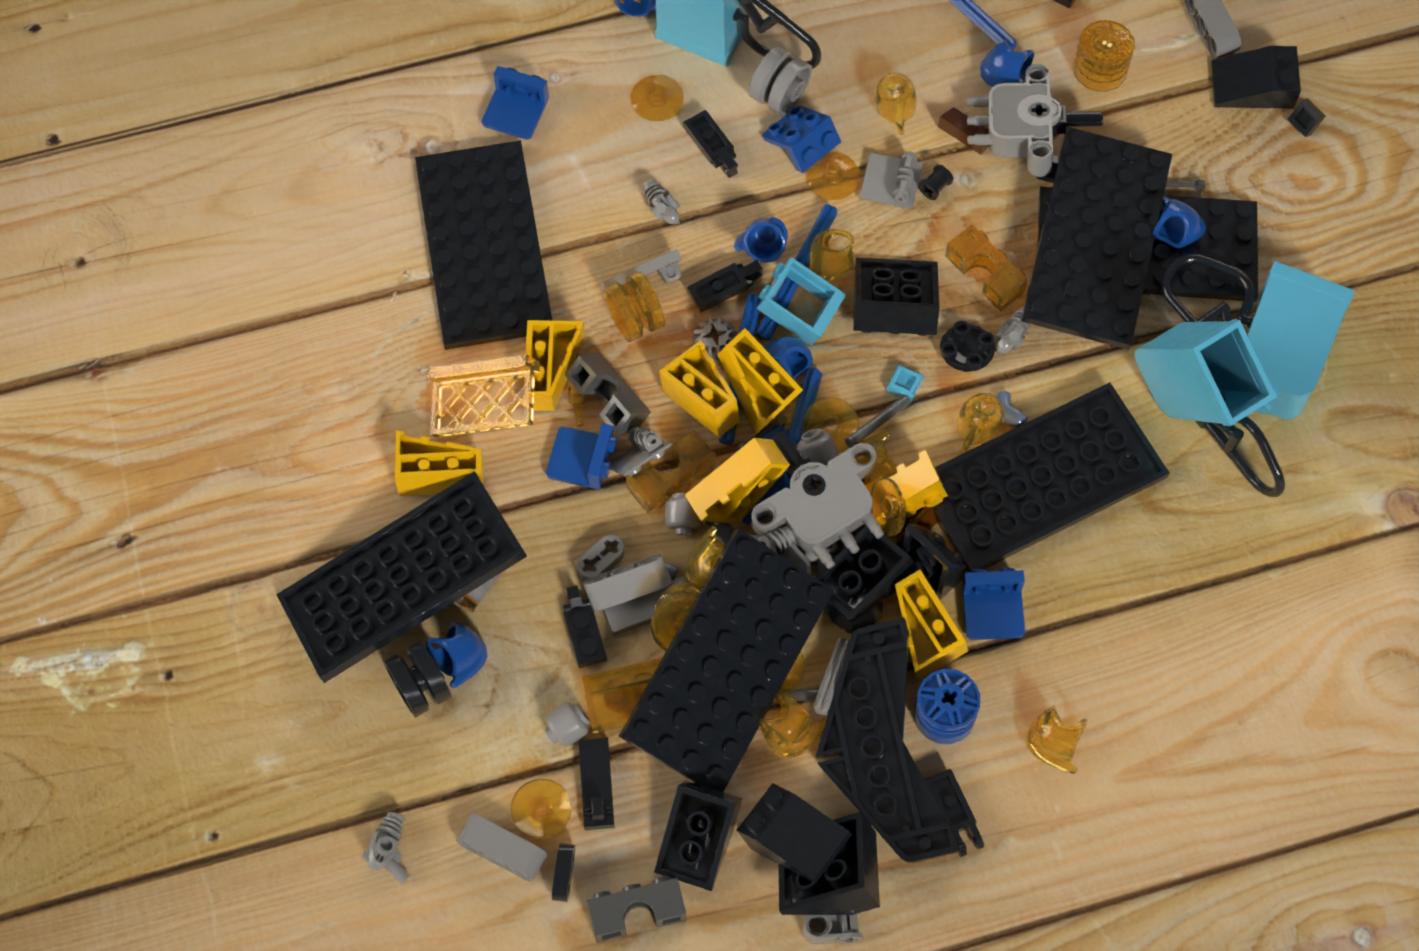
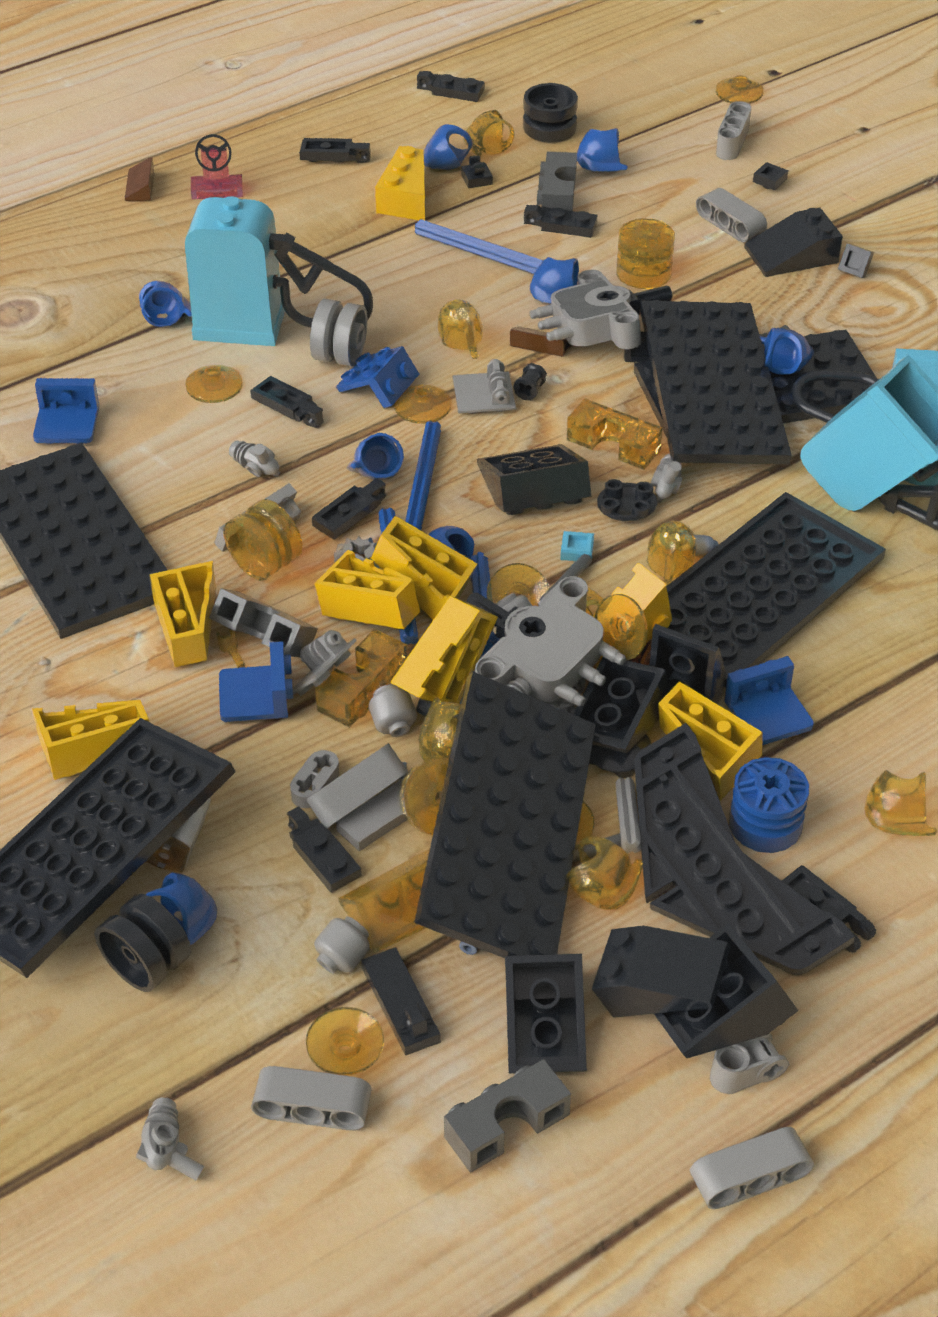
camera: 20 degrees left, 20 degrees down
(475, 373) = (115, 633): clear yellow fence -> none
(563, 872) = (399, 1102): black beam -> none
(813, 284) = (443, 481): medium azure window -> none
(828, 262) = (455, 458): clear yellow piece -> none

